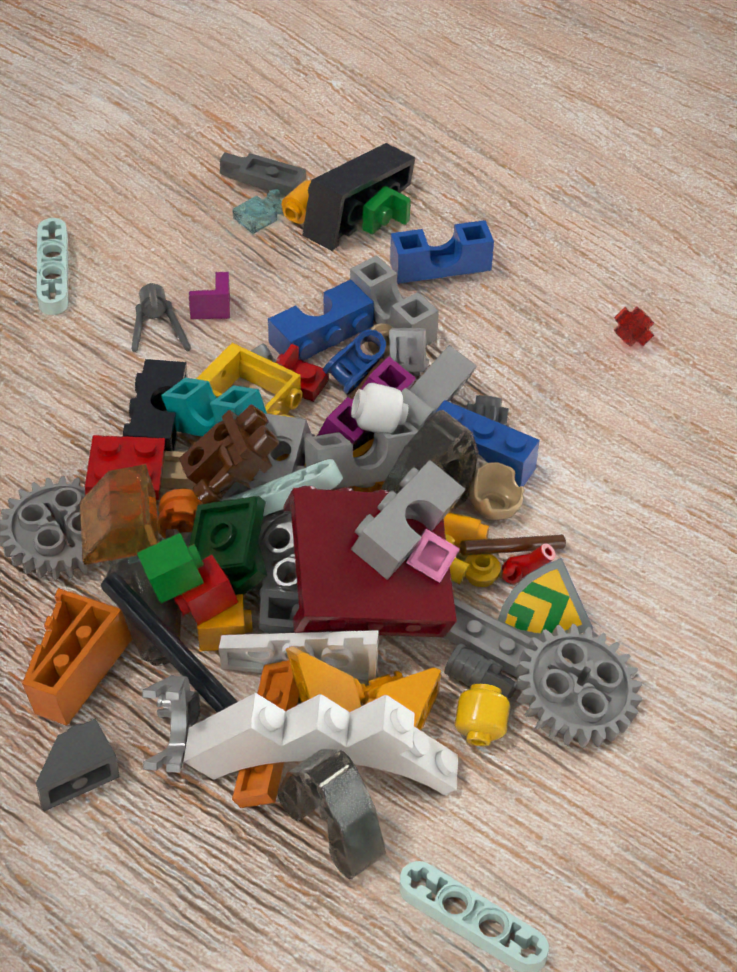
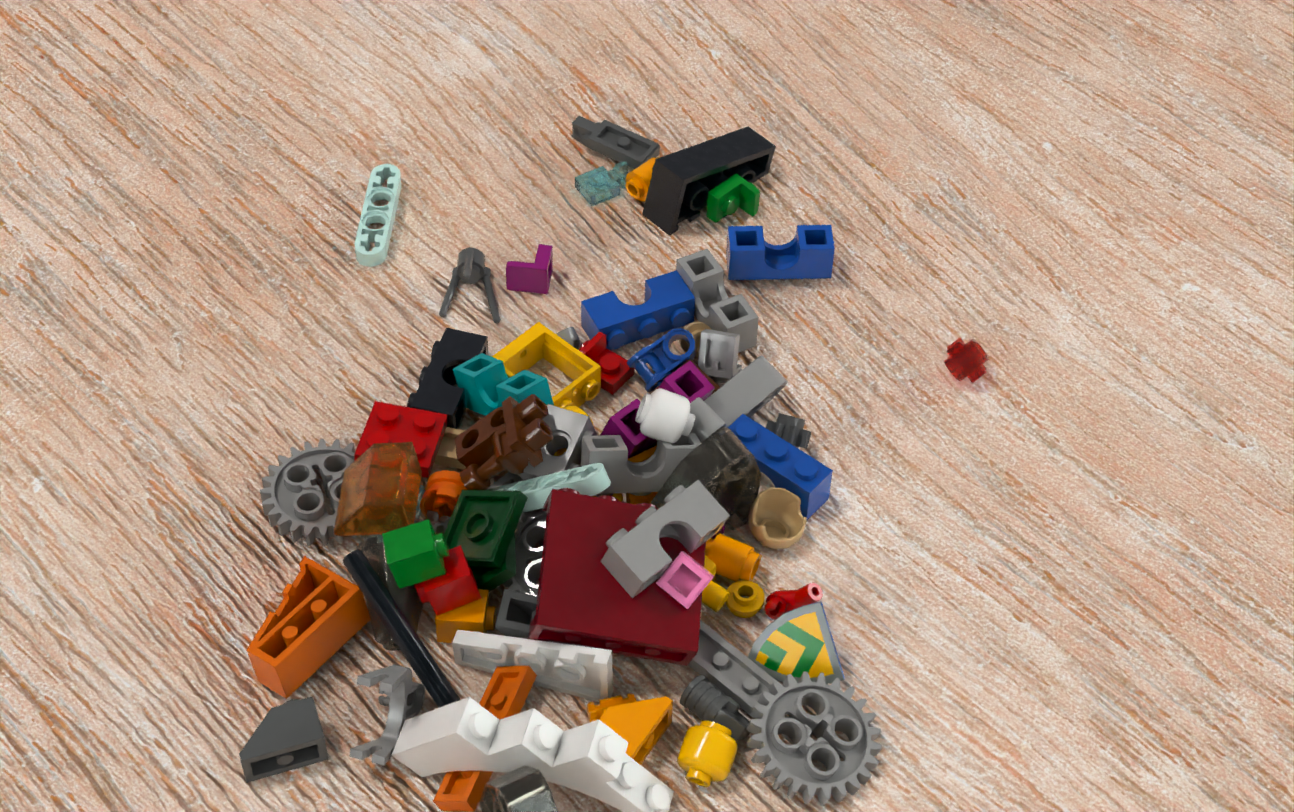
camera: 10 degrees right, 0 degrees up
(319, 677) = (551, 694): light orange slope -> none
(510, 545) = (780, 577): reddish brown bar -> none

